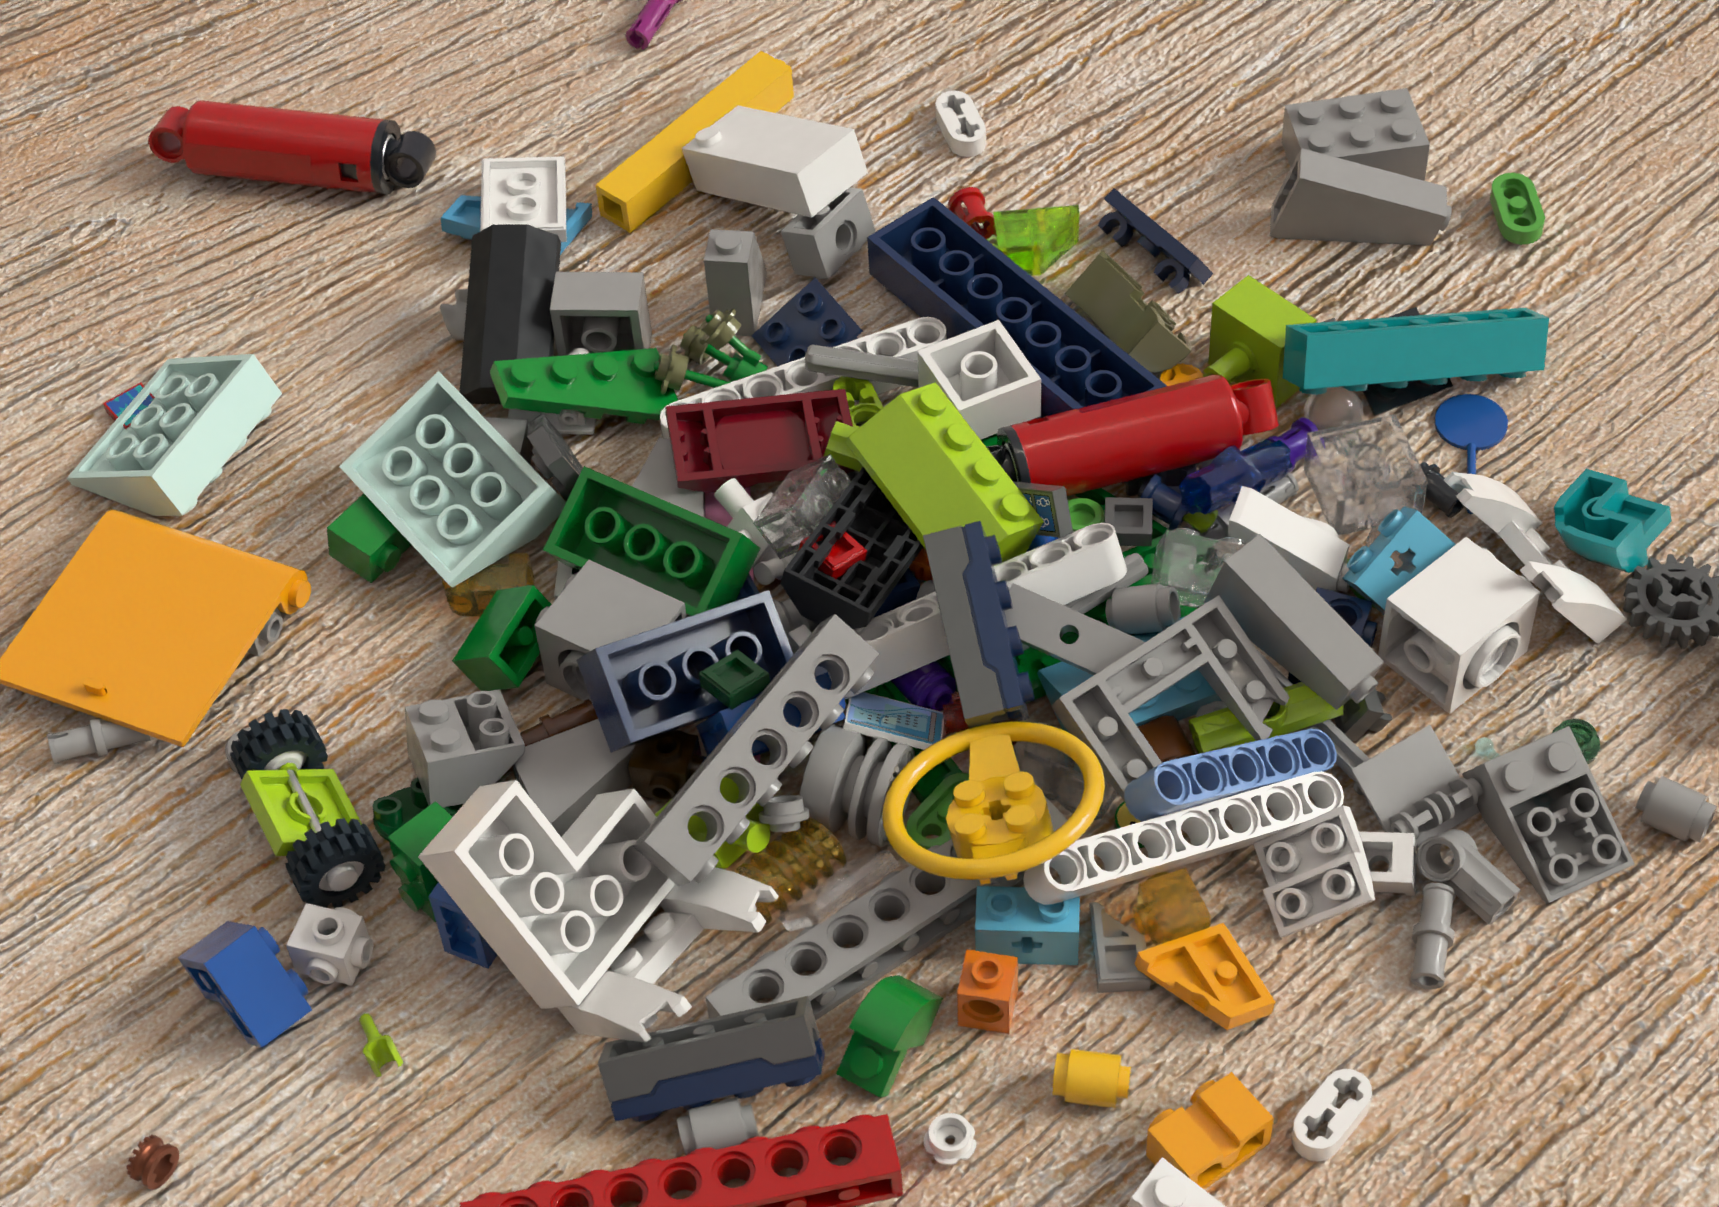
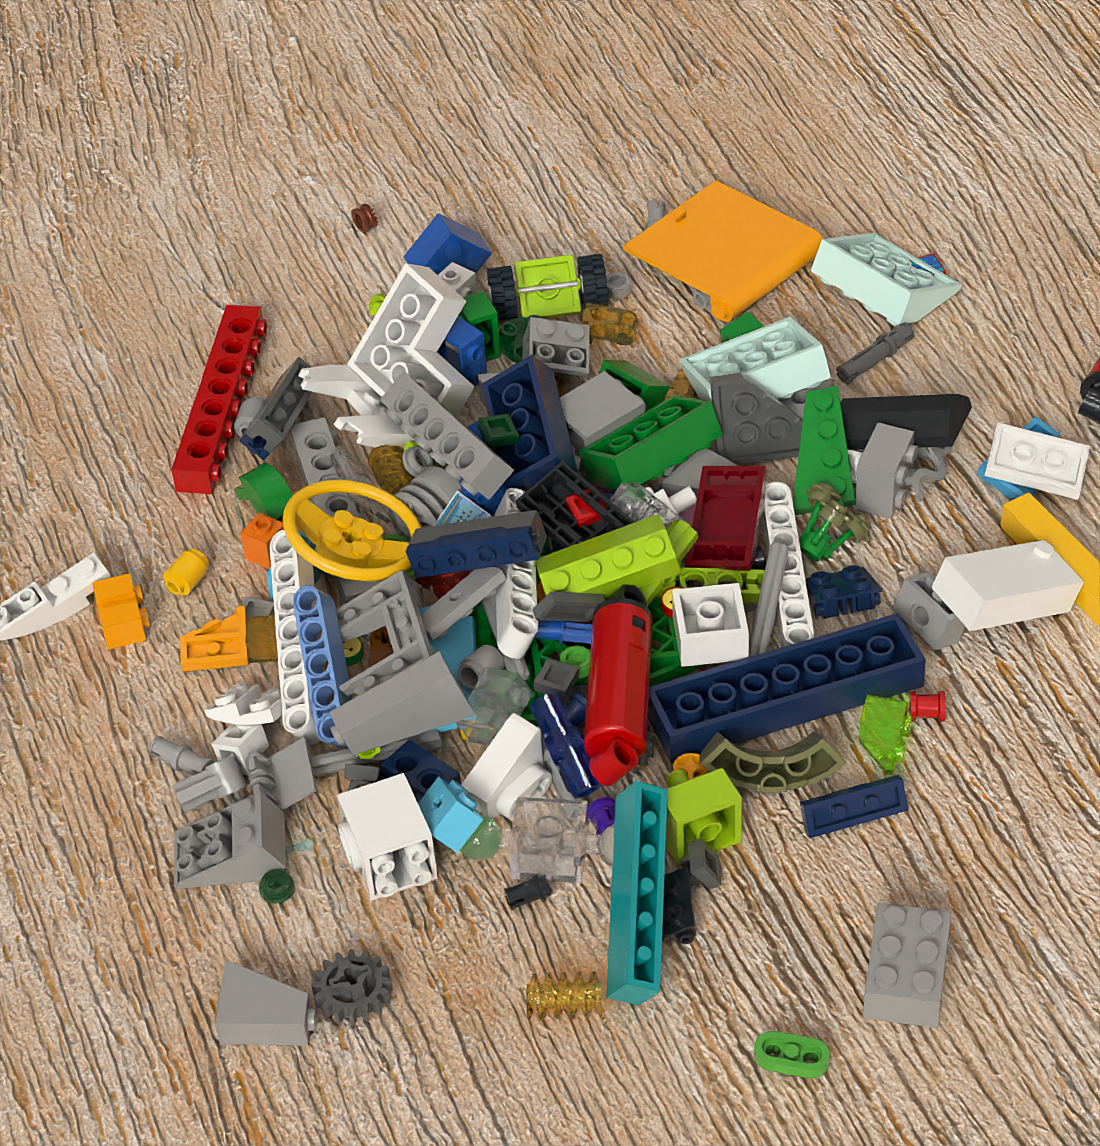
camera: 110 degrees right, 5 degrees down
(327, 403) = (884, 346): none -> dark grey pin
(362, 725) = (610, 324): none -> clear yellow leg
(735, 276) = (896, 542): light grey slope -> none
(950, 1126) = (190, 509): white plate -> none
(968, 121) = (1042, 732): white beam -> none
(1323, 1108) = (107, 672): white beam -> none
(1356, 203) = (829, 936): light grey slope -> none
(1471, 425) = (581, 947): blue piece -> none
(1516, 524) = (467, 913): white wedge -> none
(1569, 402) = (564, 995): none -> clear yellow piece
(1607, 523) = (434, 965): teal brick -> none
(1675, 809) = (191, 913): light grey brick -> none

